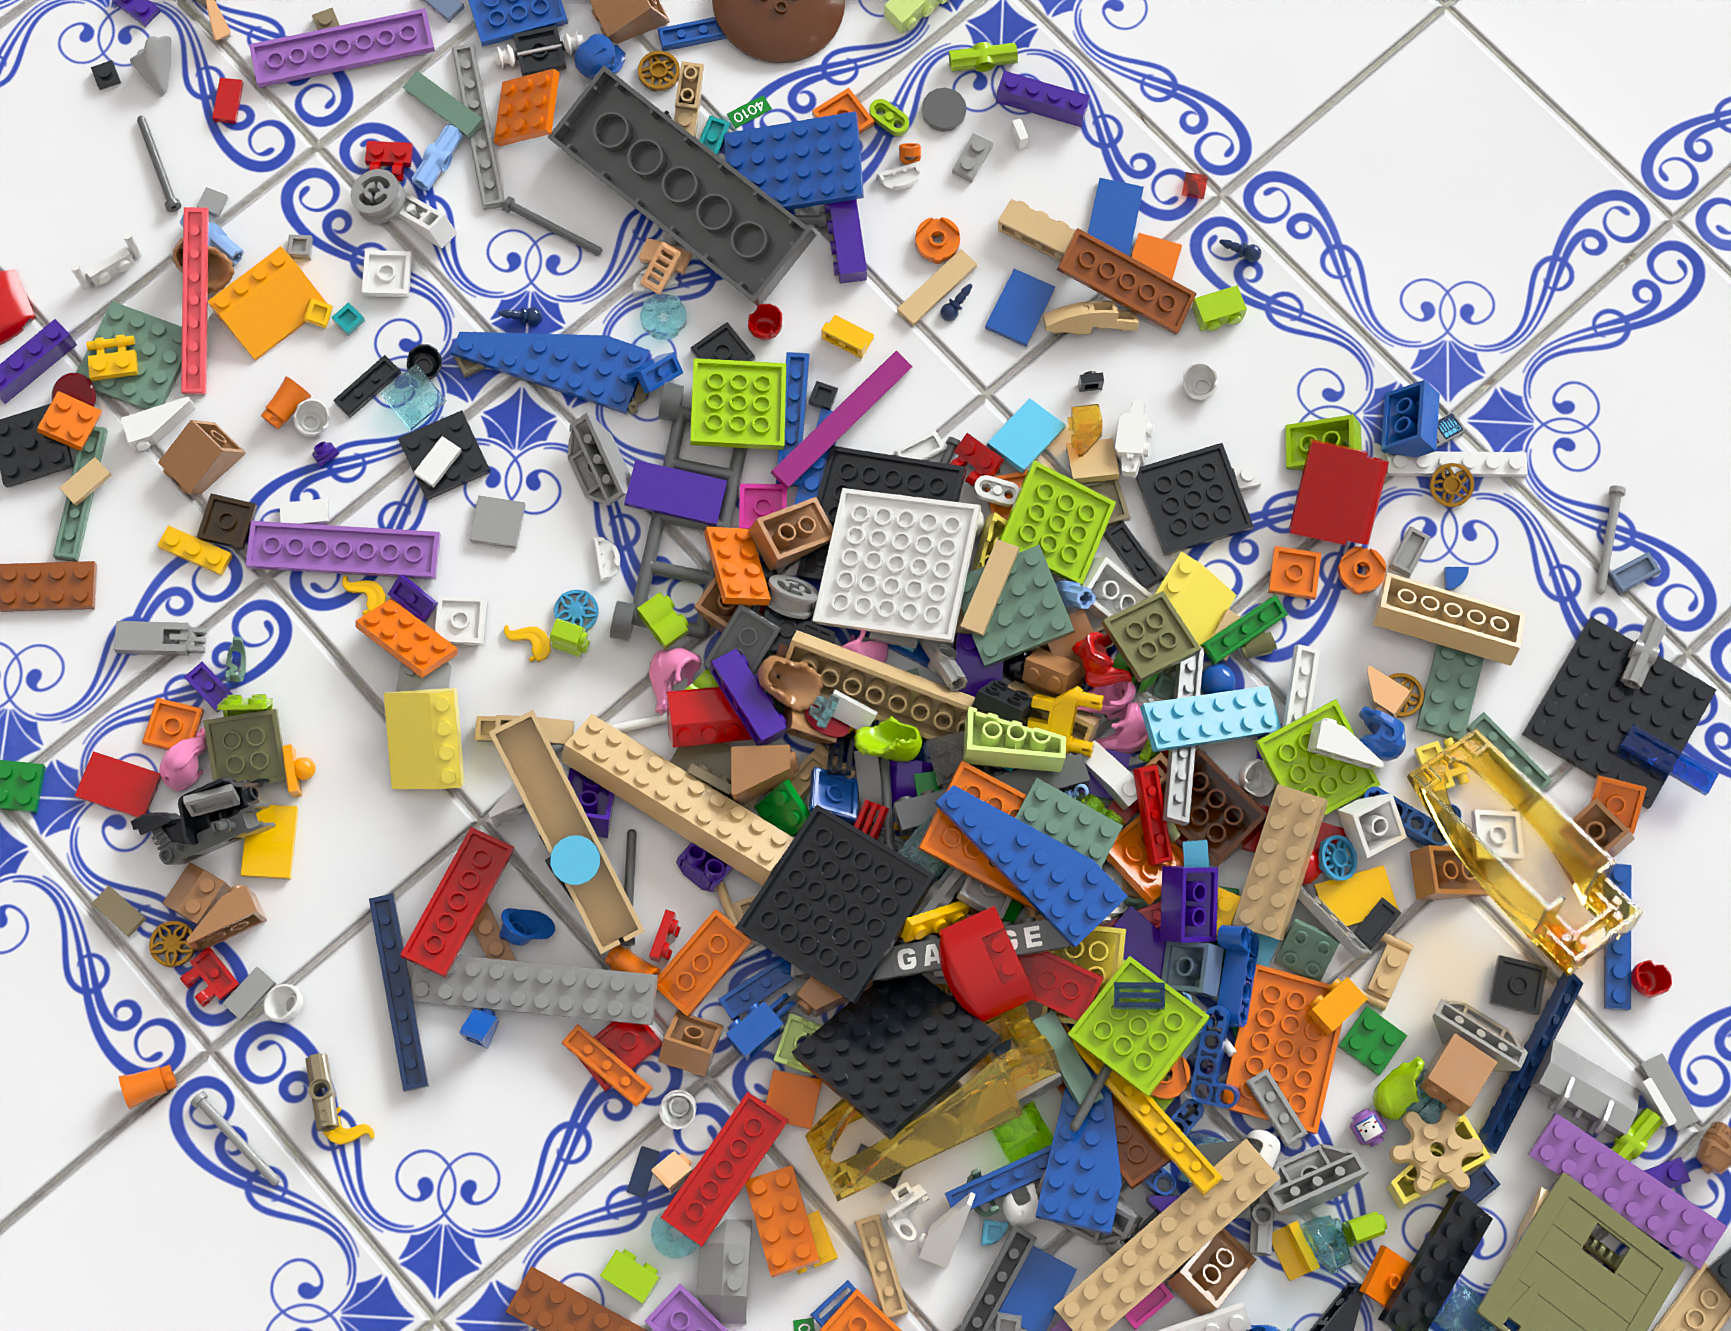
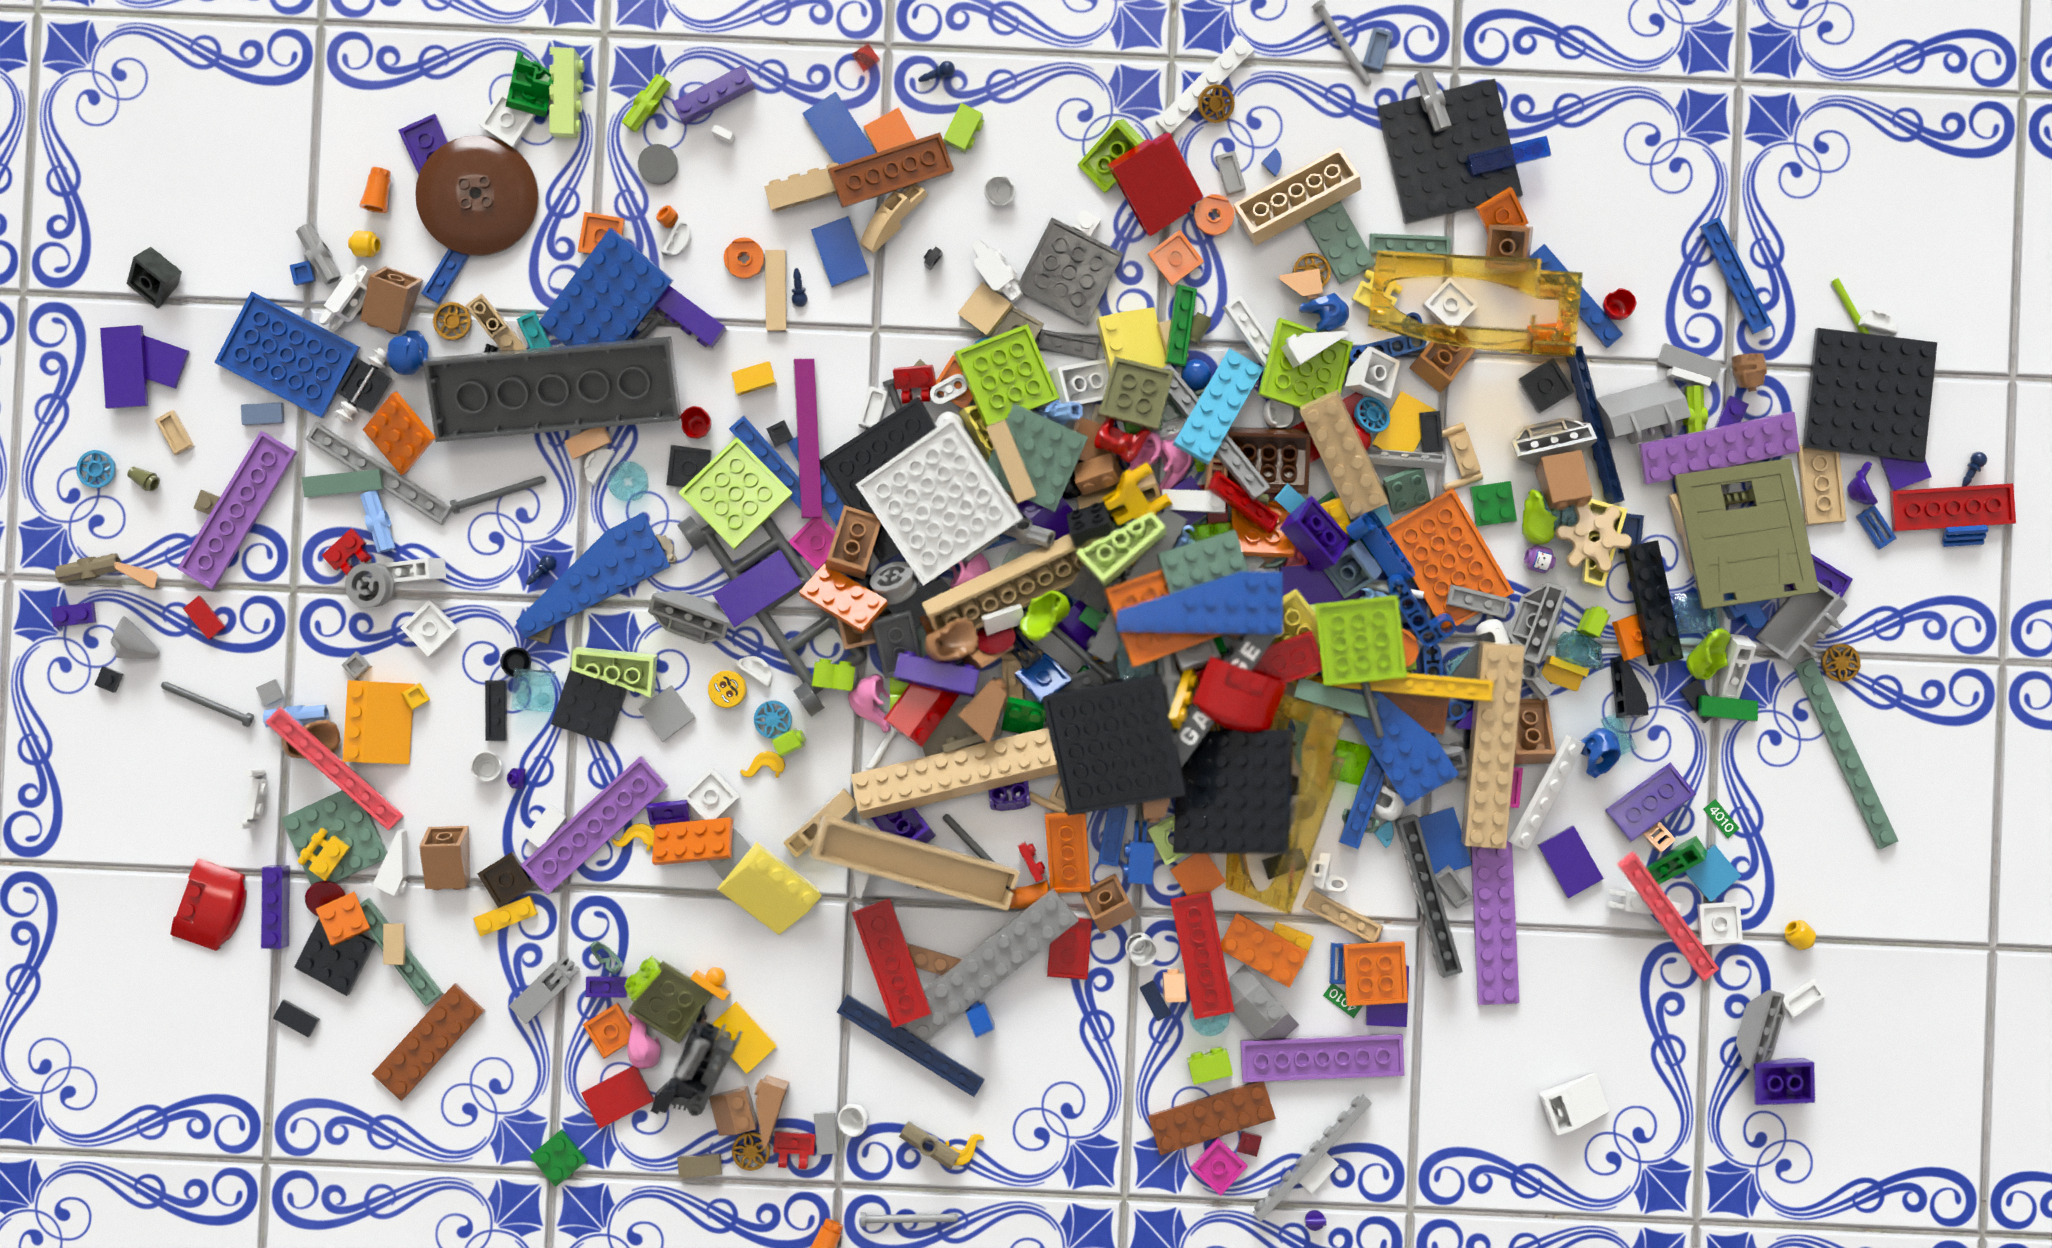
camera: 45 degrees left, 15 degrees up
(284, 403) = (459, 773): orange plant -> none
(348, 319) = (437, 680): teal plate -> none
(437, 461) = (592, 715): white tile -> none
(502, 452) = (618, 668): none -> yellowish green wedge
(525, 925) = (944, 934): blue piece -> none
(566, 550) = (727, 689): none -> yellow head
(575, 860) = (939, 876): medium azure tile -> none
(607, 1065) = (1074, 965): orange tile -> none
(657, 371) = (663, 523): blue panel -> none
(668, 272) = (596, 436): light nougat slope -> none
(749, 111) = (537, 290): green sticker -> none
(826, 709) = (989, 636): clear light blue tile -> none
(883, 811) = (1088, 670): red tile -> none
(890, 117) = (630, 205): lime plate -> none
(944, 1233) = (1362, 864): white slope -> none
(972, 157) = (709, 179): light grey plate -> none
(1026, 435) = (928, 334): medium azure tile -> none
(1086, 427) = (961, 291): clear yellow slope -> none
(1139, 985) = (1332, 635): clear blue tile -> none
(1336, 1005) = (1456, 506): light orange brick -> none
(1410, 420) = (1152, 86): blue slope -> none
(1448, 429) = (1175, 74): tile -> none

